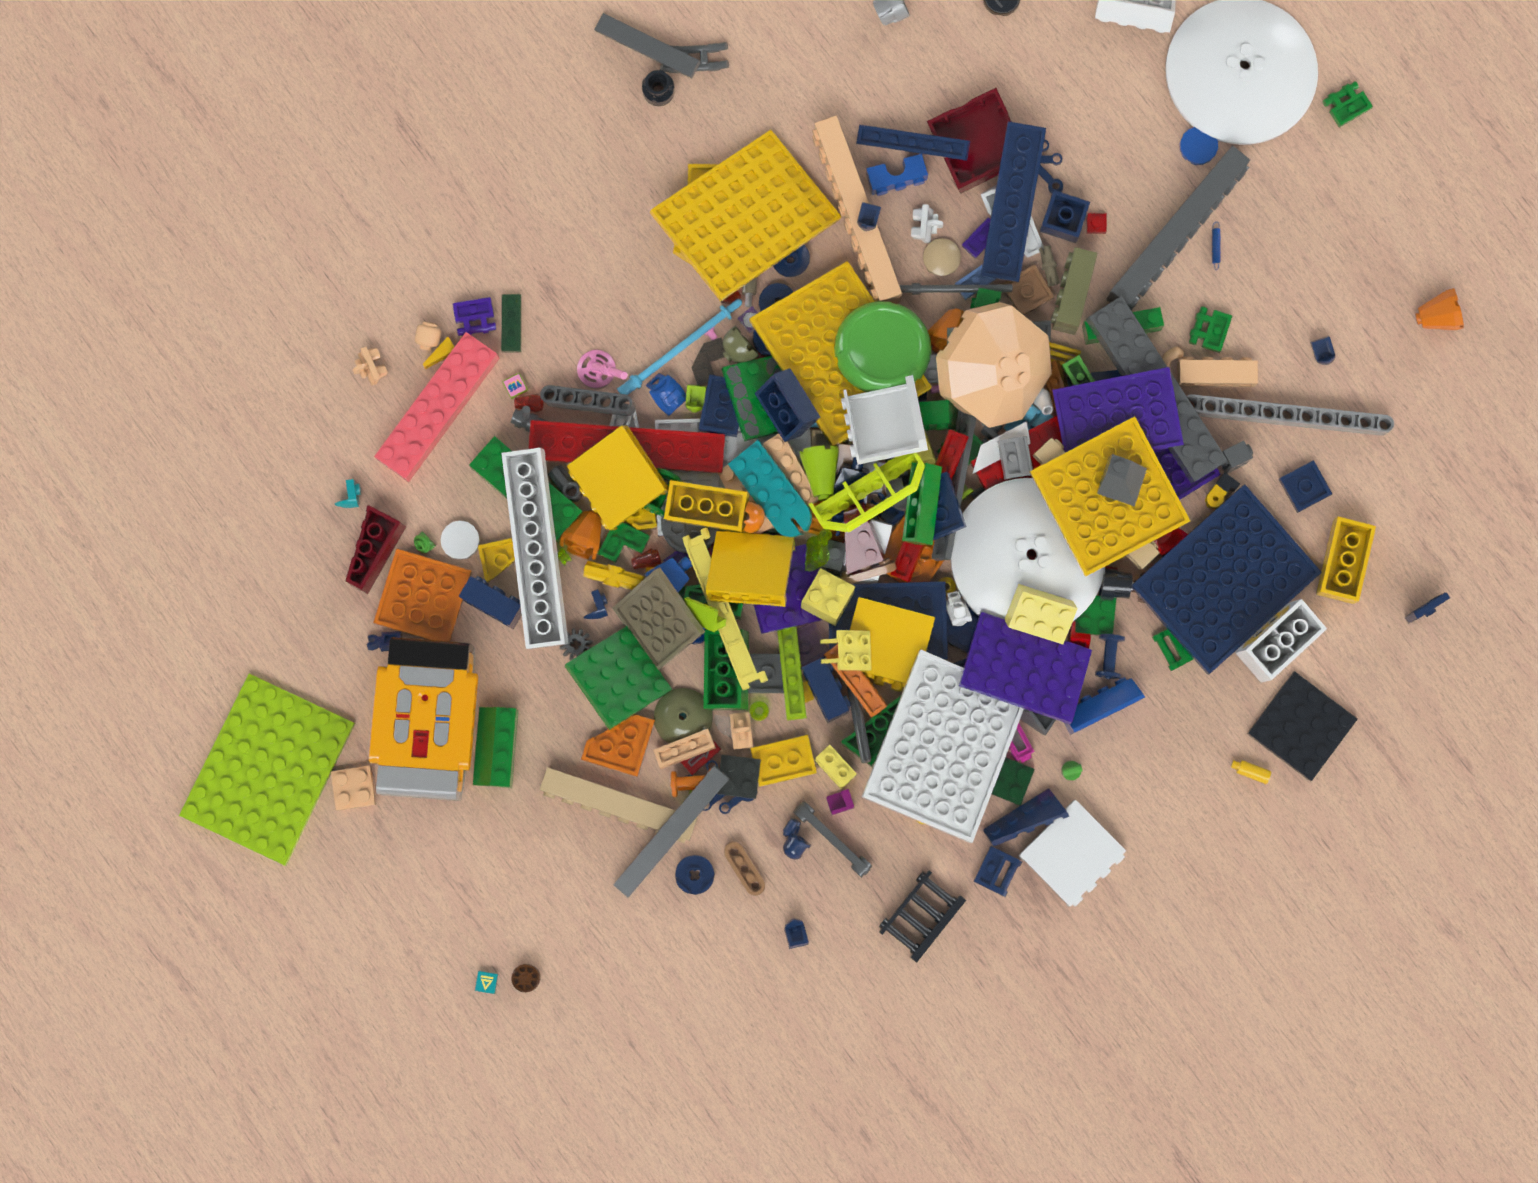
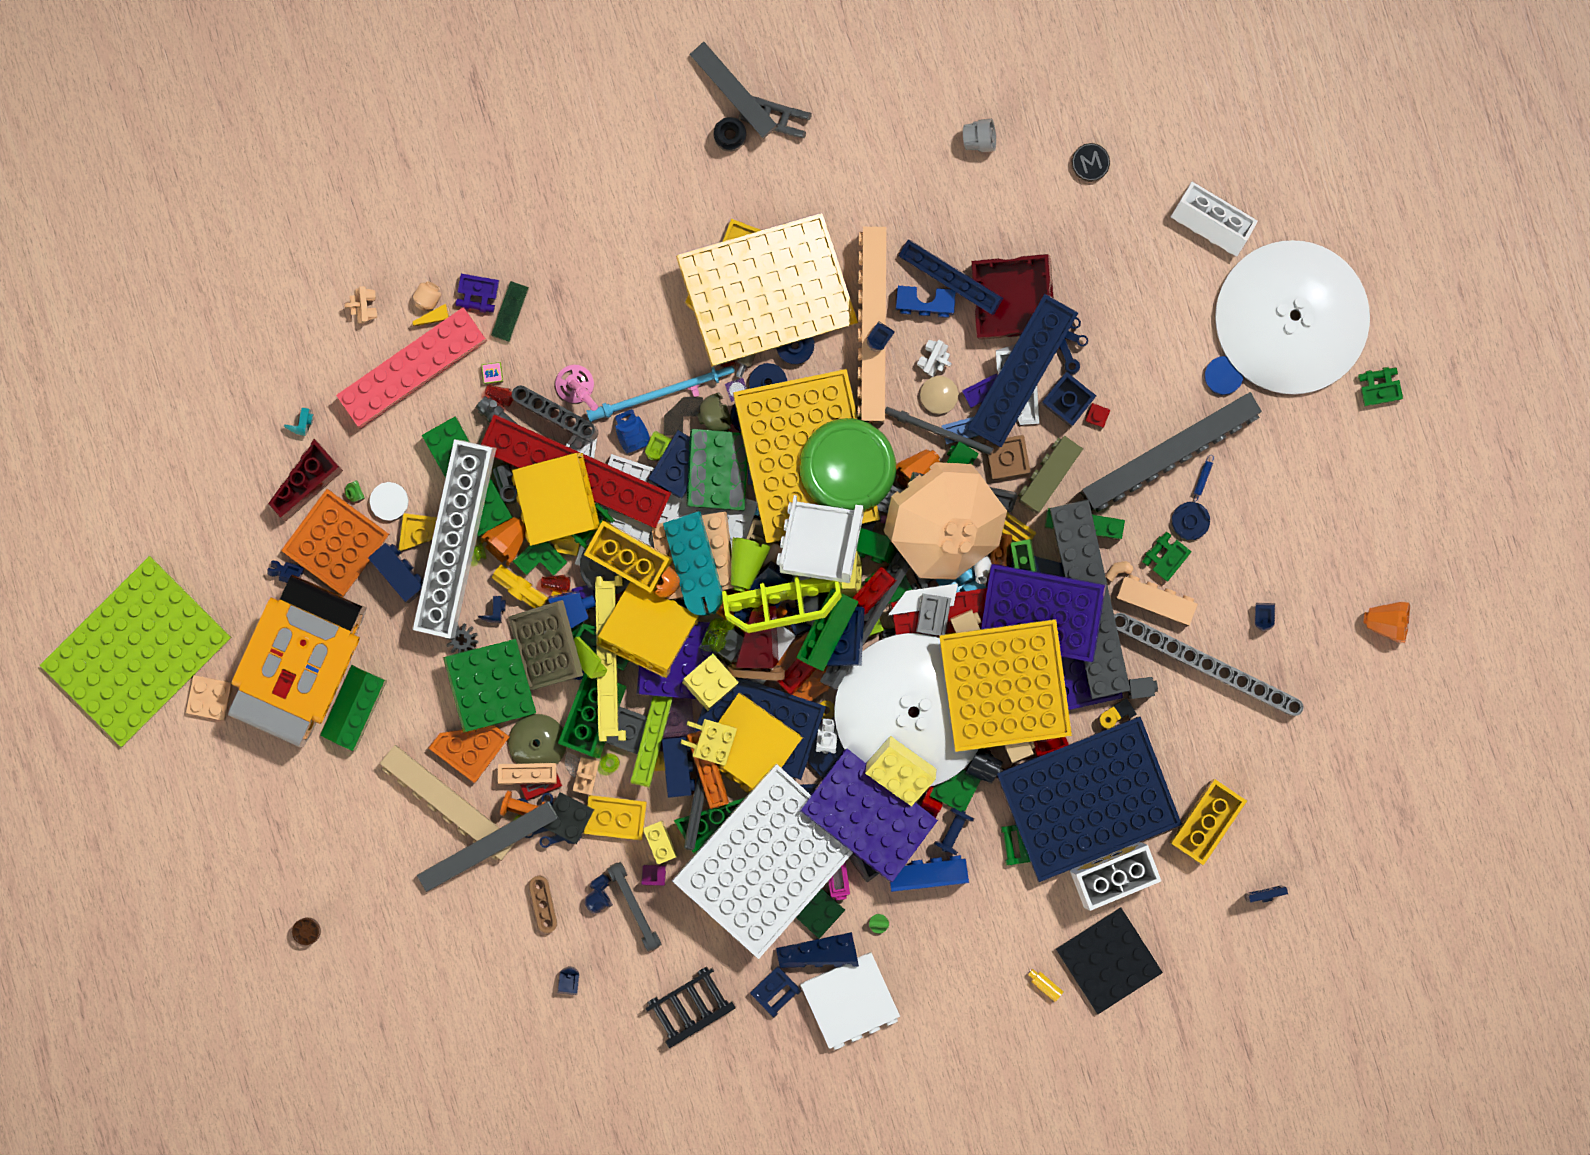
camera: 25 degrees right, 5 degrees up
(486, 982) = (269, 921): teal tile -> none
(683, 875) = (499, 882): dark blue plate -> none
(787, 405) = (737, 489): dark blue brick -> none
(1049, 265) = (1036, 441): dark tan pin -> none
(1122, 480) = (1021, 675): dark grey slope -> none
(1220, 289) = (1190, 520): none -> dark blue tile
(1305, 486) = (1198, 738): dark blue plate -> none

